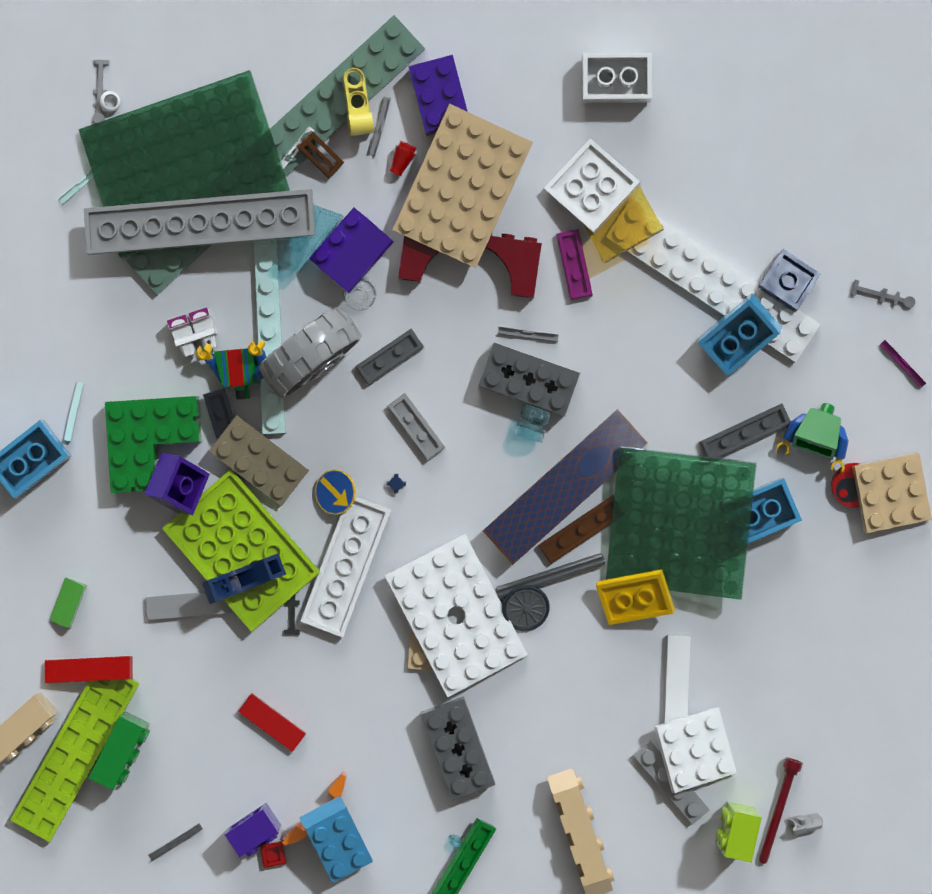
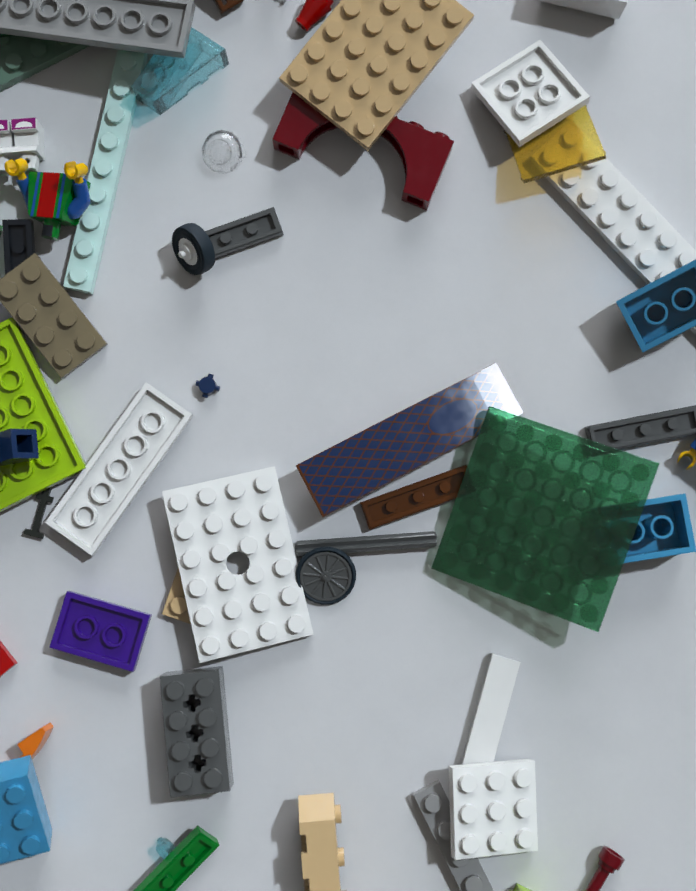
camera: 15 degrees right, 5 degrees down
(310, 352) = (137, 189): light grey wheel -> none
(335, 492) = (130, 376): blue piece -> none
(351, 250) = (224, 93): dark purple slope -> none
(358, 380) = (193, 248): none -> black wheel
(364, 692) = (100, 631): none -> dark purple plate
(416, 426) = (249, 324): light grey tile -> none
(526, 428) = (389, 362): clear light blue wheel -> none
(529, 334) = (410, 249): light grey piece -> none
(542, 371) = (398, 281): dark grey brick -> none
(574, 264) = (485, 182): magenta tile -> none
(635, 597) = (464, 596): yellow plate -> none

